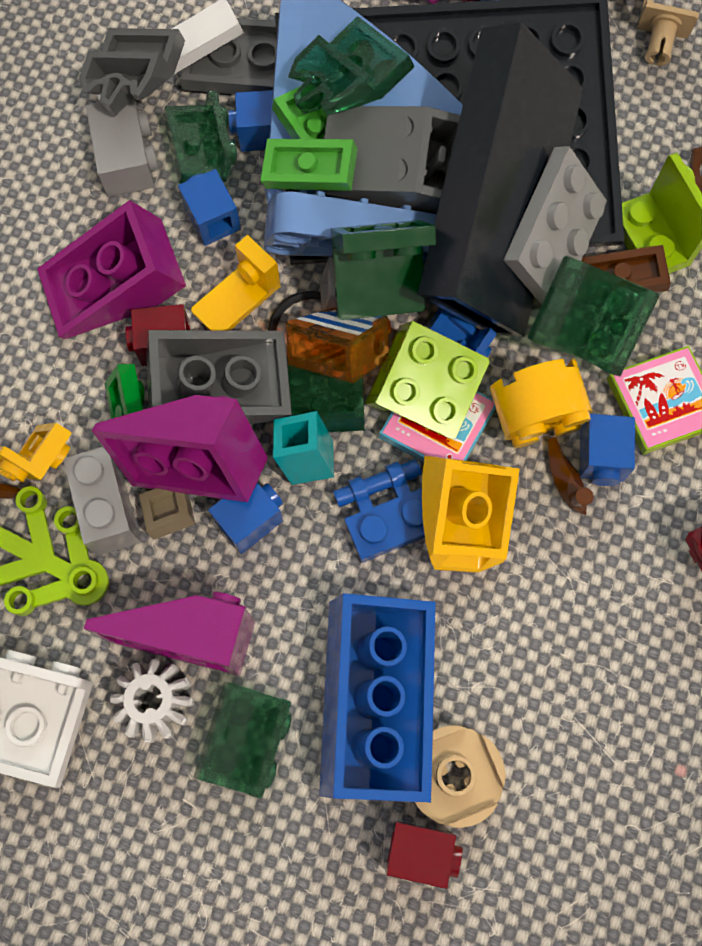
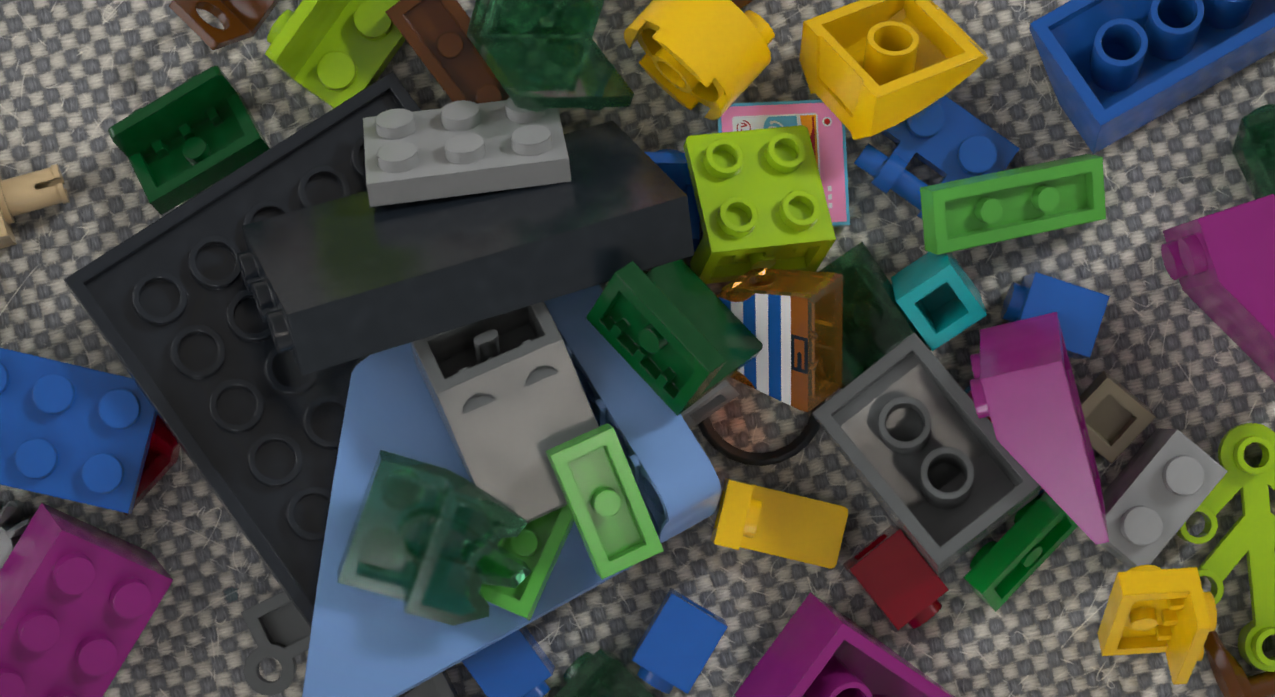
camera: 120 degrees left, 15 degrees up
(329, 528) = (1012, 203): none -> bright green plate
(647, 123) = (189, 139): none -> dark green bracket

